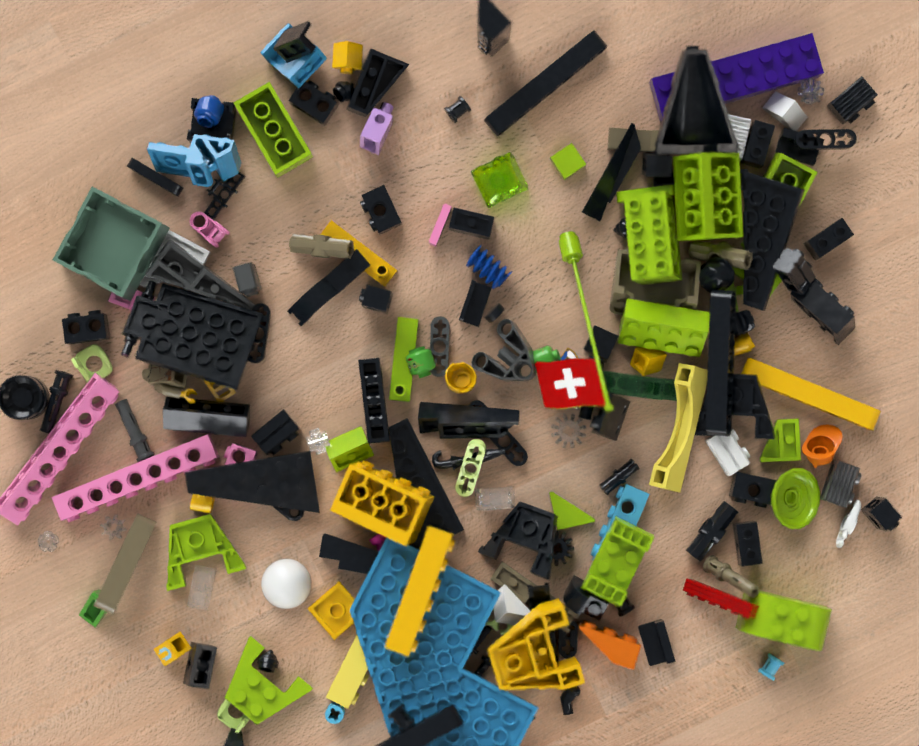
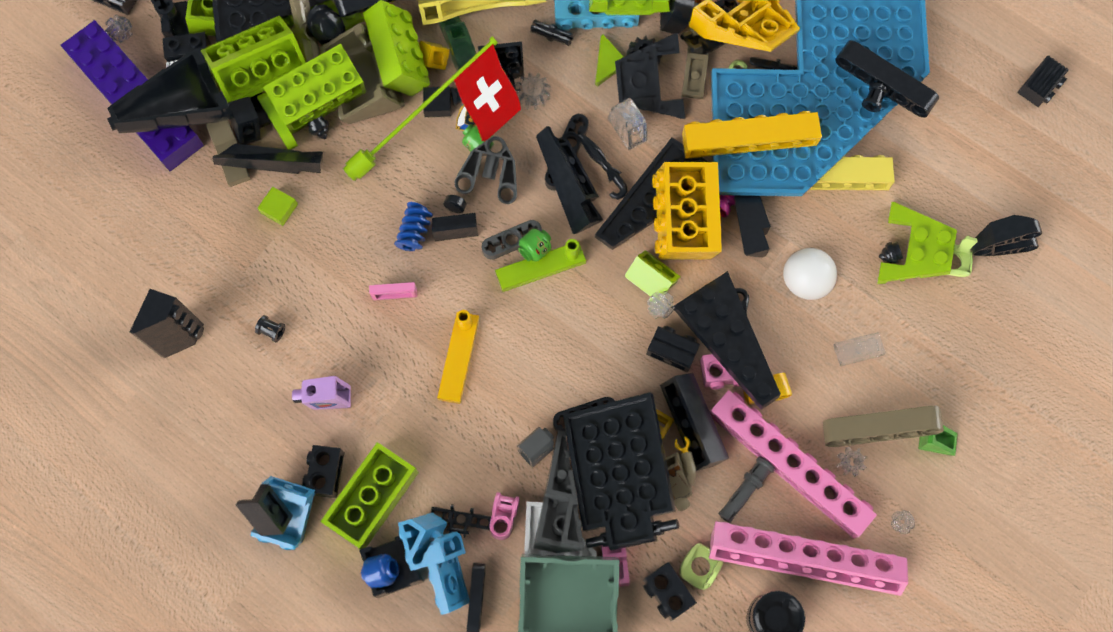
camera: 115 degrees left, 15 degrees down
(55, 390) = (749, 588): black pin -> none
(172, 648) = (934, 343): yellow brick -> none
(197, 540) = (819, 375): lime wing -> none
(200, 665) = (934, 310): black brick -> none
(321, 246) = (467, 390): dark tan piece -> none
(329, 287) = (505, 365): black piece -> none
(332, 719) = (907, 167): medium azure bush -> none
(333, 610) = (808, 217): yellow tile -> none
(343, 91) = (299, 448): black plate -> none
(347, 56) = (261, 459): yellow brick -> none
(374, 80) = (276, 420): black wedge -> none
(374, 400) = (594, 270): black brick -> none
(376, 198) = (406, 340): black brick -> none
(376, 299) = (494, 312): black brick -> none
(460, 377) = (532, 204): yellow hair -> none
(468, 459) = (618, 149): yellowish green beam -> none
(471, 223) = (377, 261): black panel -> none
(499, 179) = (323, 258): clear neon green slope -> none
(509, 607) = (718, 59): white slope -> none
(545, 83) = (209, 259): black beam -> none
(785, 111) = (146, 44): white slope -> none

